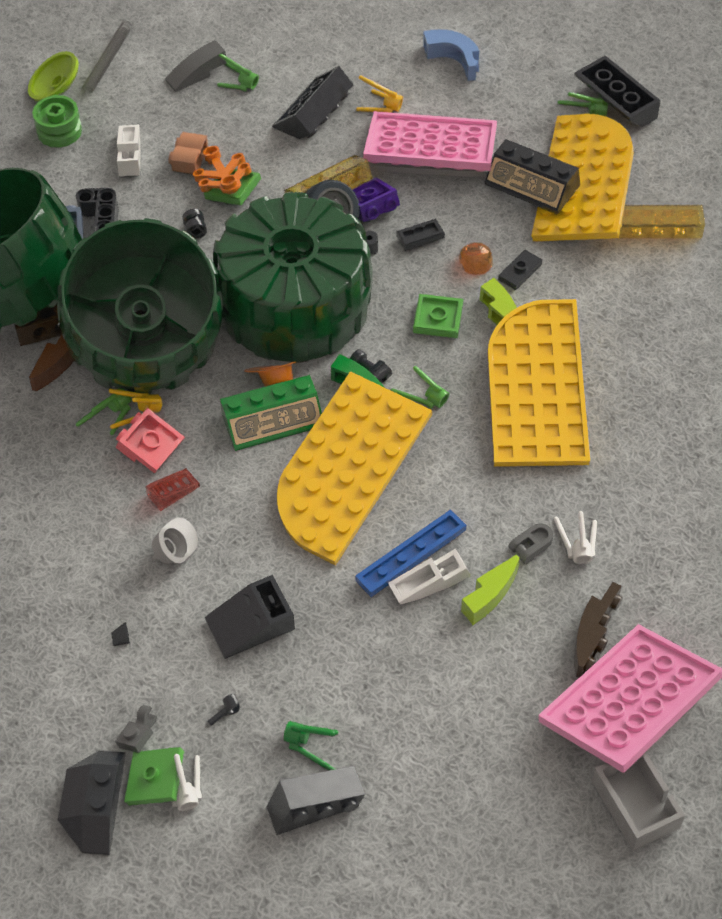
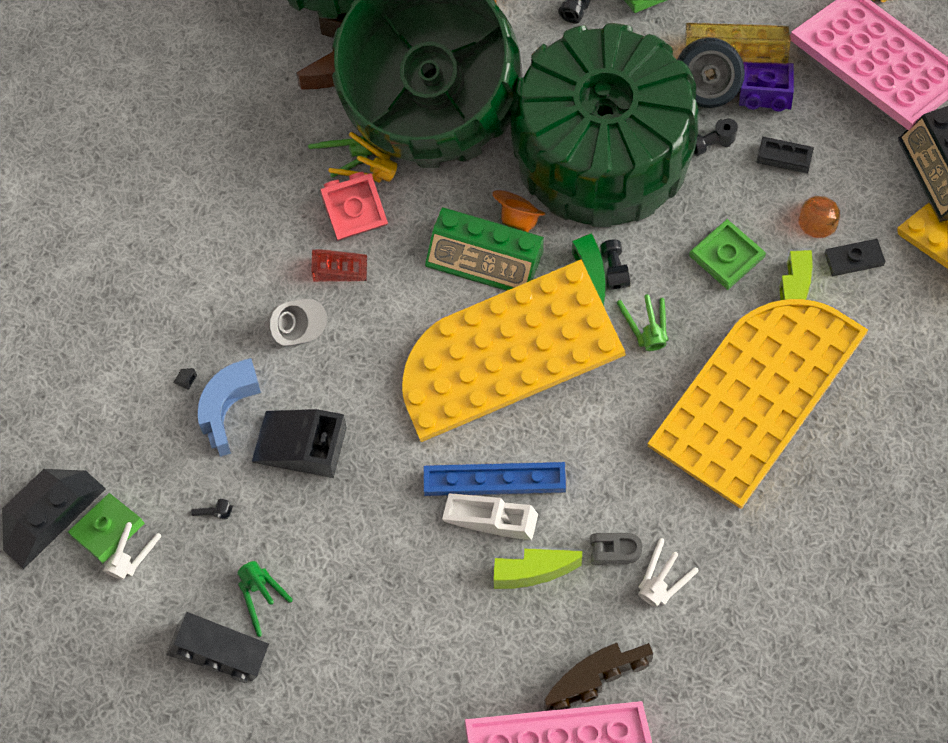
camera: 40 degrees right, 10 degrees up
(137, 733) = (125, 478): dark grey plate -> none
(162, 617) = (219, 394): none -> medium blue arch

